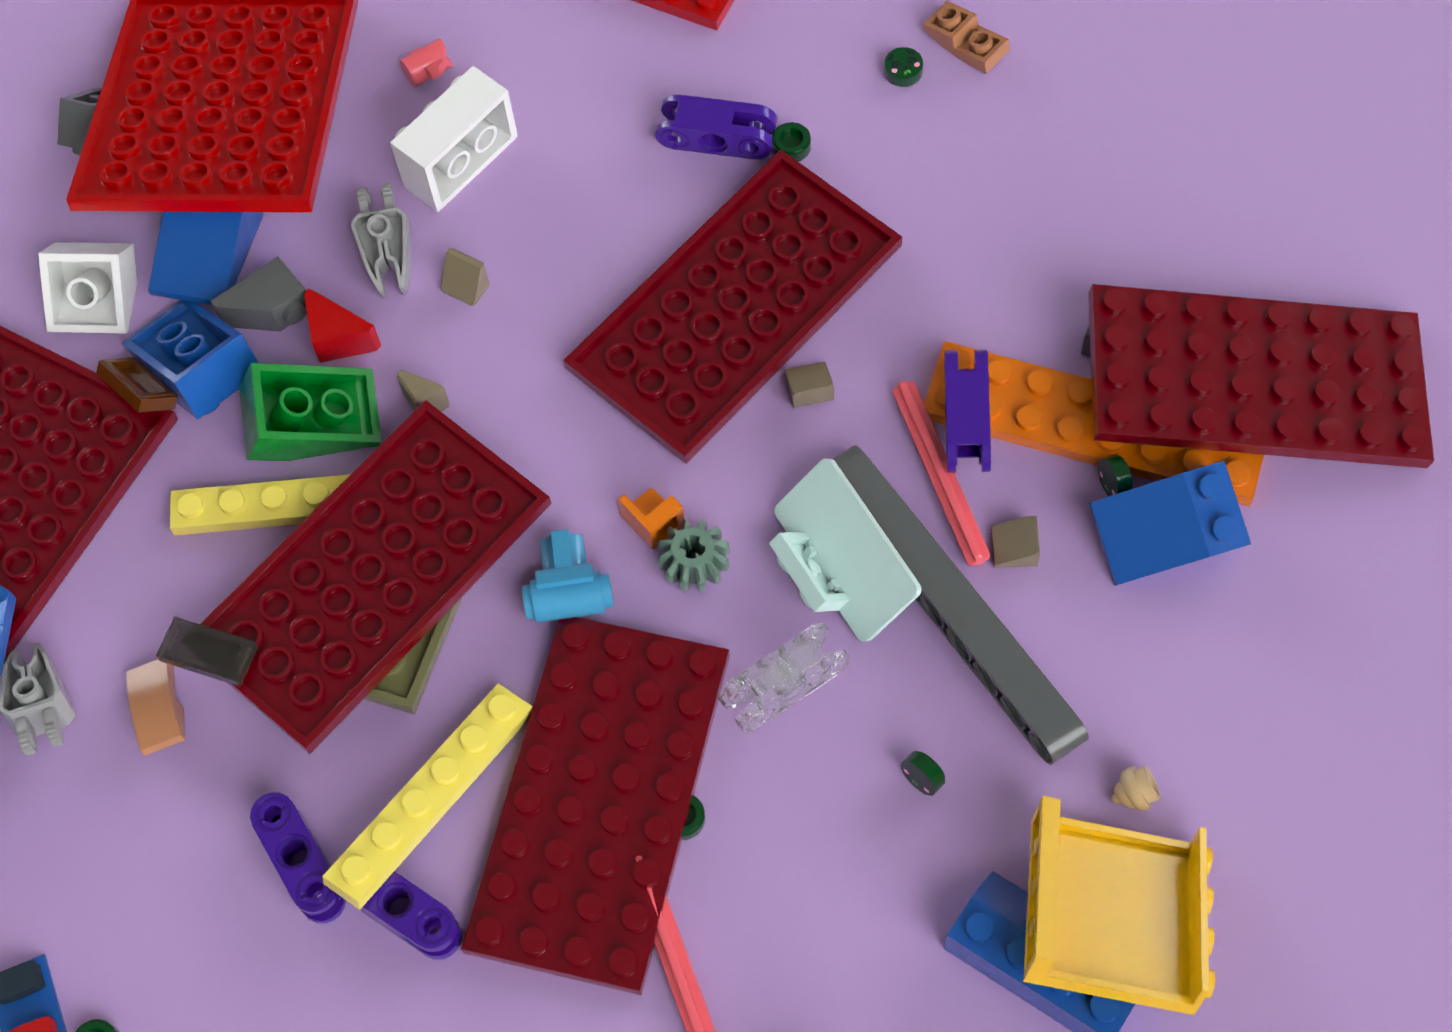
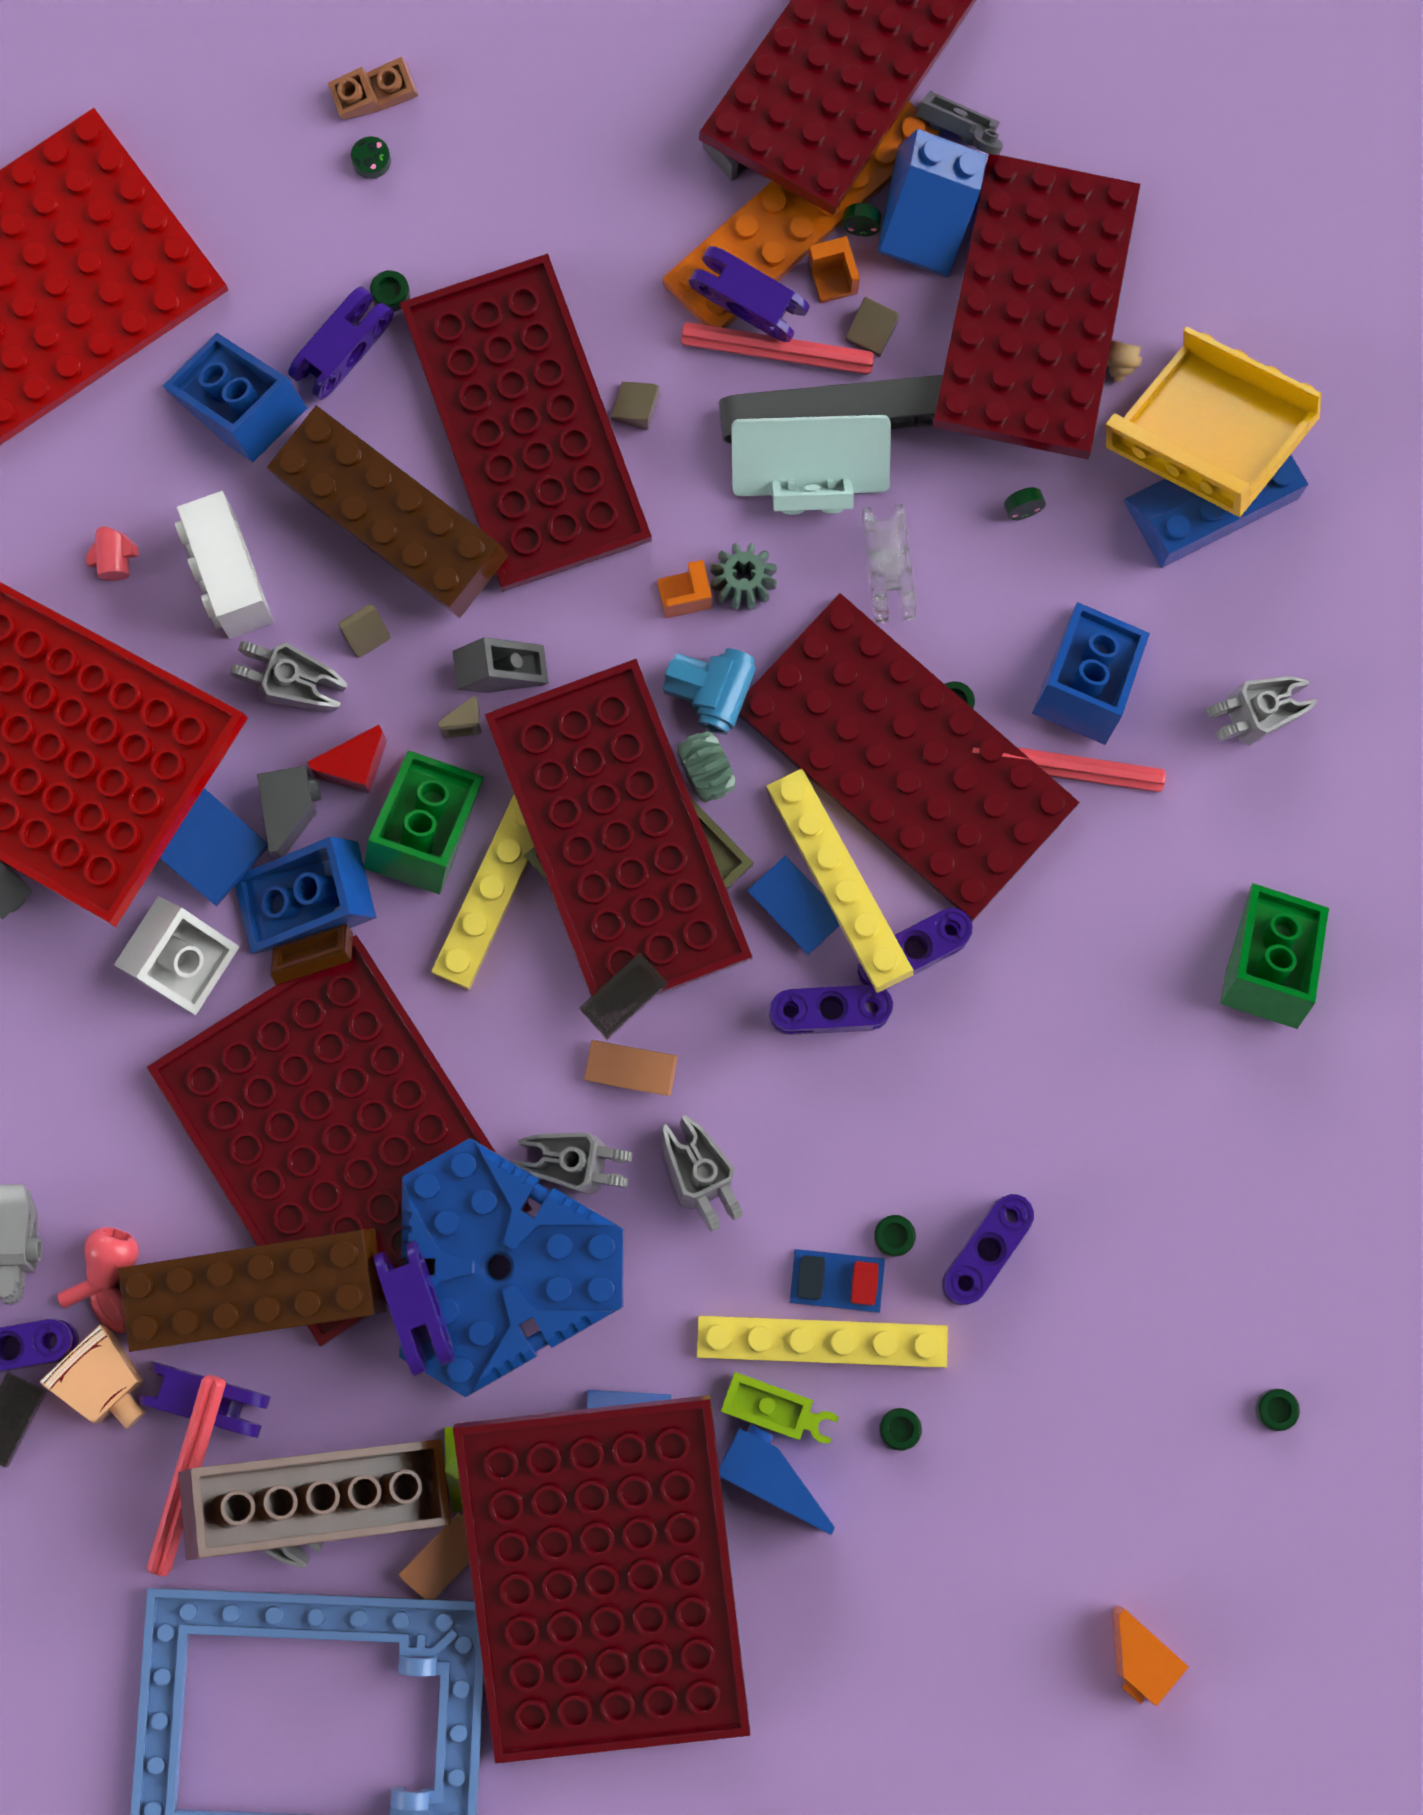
camera: 70 degrees left, 15 degrees up
(73, 817) = (699, 1172): none -> light grey hinge
(388, 766) = (795, 904): none -> blue piece
(481, 615) = (706, 766): none -> sand green gear
(489, 399) = (499, 665): none -> dark grey slope
(575, 236) = (388, 511): none -> reddish brown brick
(617, 79) = (236, 396): none -> blue slope
(783, 930) = (1091, 674): none -> blue slope
(1050, 478) = (833, 269): none -> orange panel
(1131, 675) = (1037, 306): none -> dark red plate
(1277, 513) = (970, 125): none -> dark grey hinge

